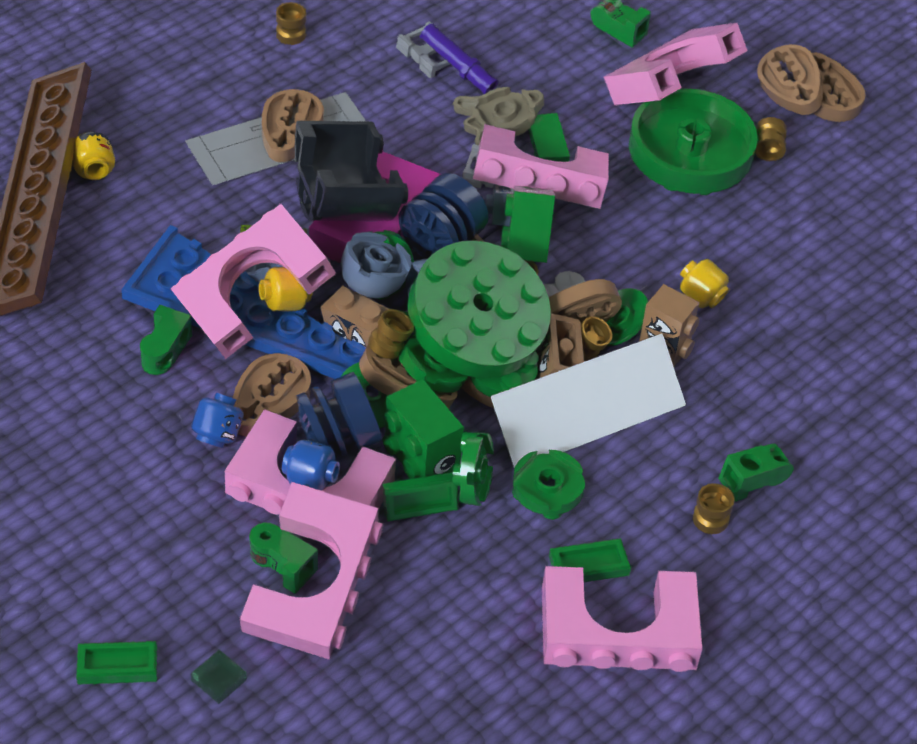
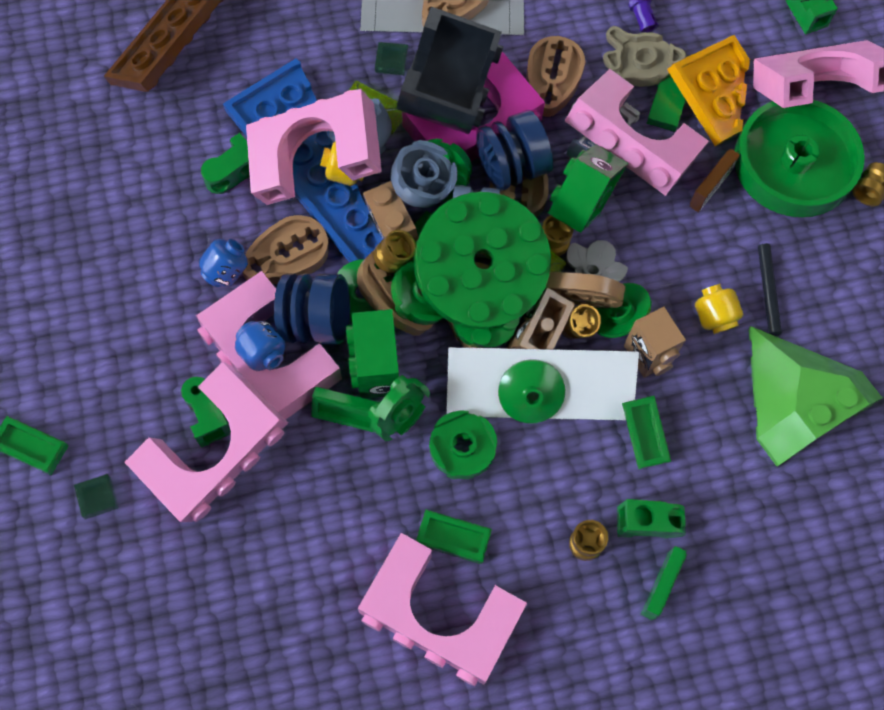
camera: 30 degrees right, 20 degrees up
(260, 196) = (391, 58): none -> clear green tile
(436, 138) = (568, 74): none -> medium nougat piece
(570, 415) = (529, 377): none -> green dish
(580, 109) = (715, 87): none -> light orange plate
(631, 186) = (714, 180): none -> reddish brown tile
(705, 404) = (646, 432): none -> green tile
(736, 255) = (769, 289): none -> black bar
(800, 514) = (664, 583): none -> green tile
(815, 326) = (801, 394): none -> bright green wedge

